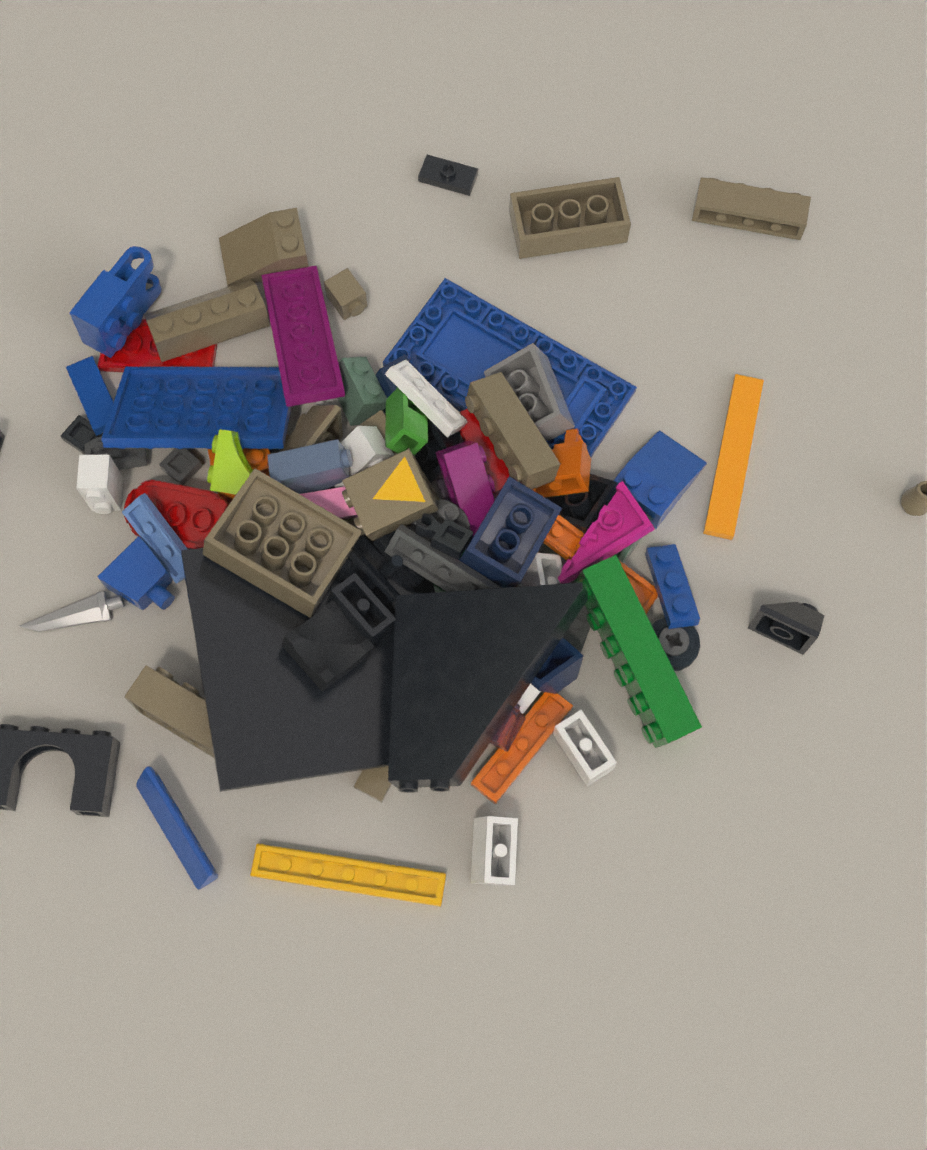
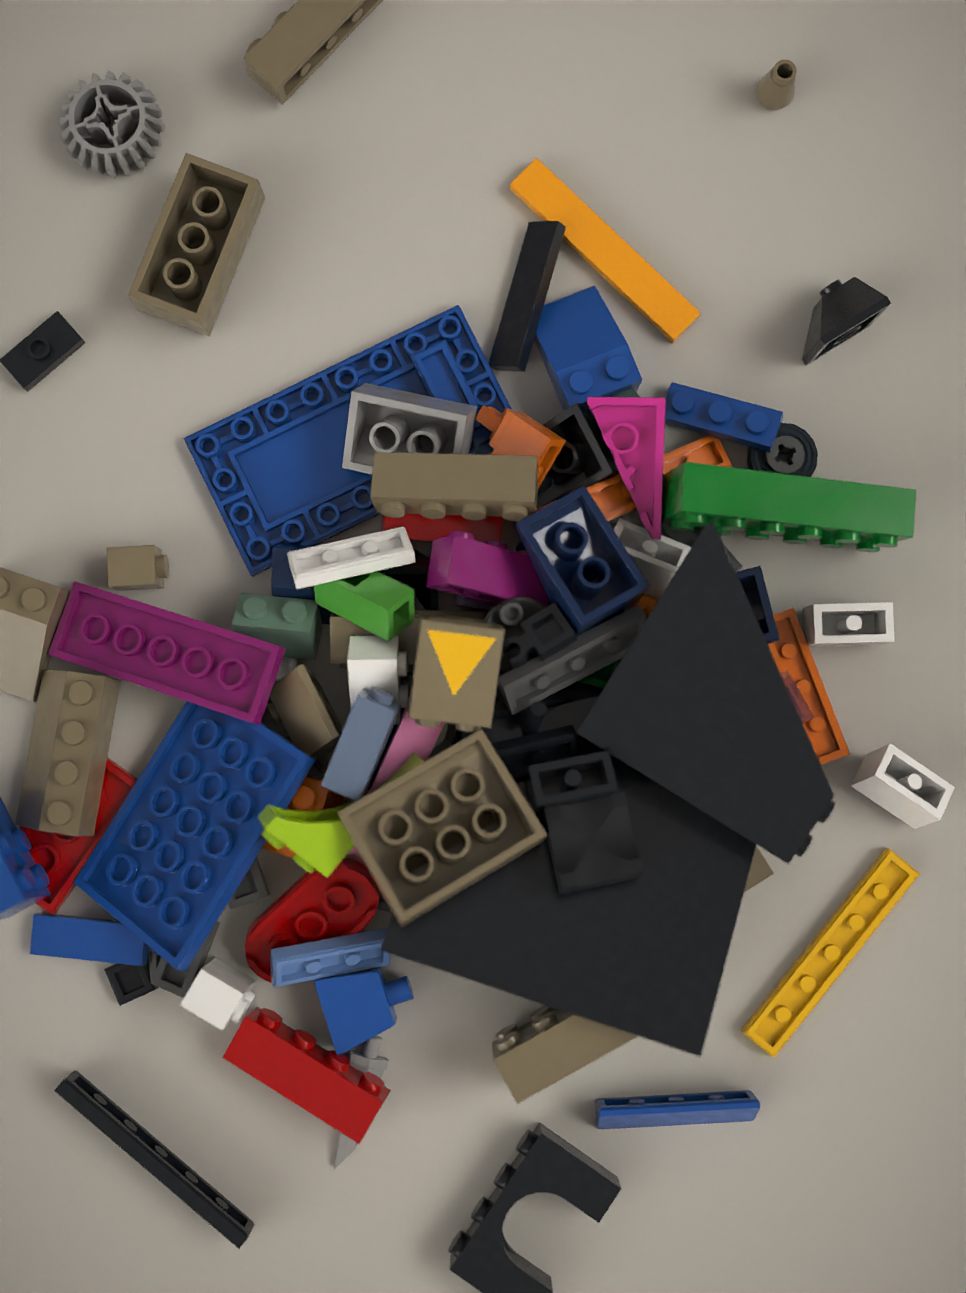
camera: 65 degrees left, 15 degrees up
(75, 568) = (307, 1073): none -> red brick
(609, 126) = (82, 128): none -> light grey gear
(670, 423) = (527, 296): none -> black tile

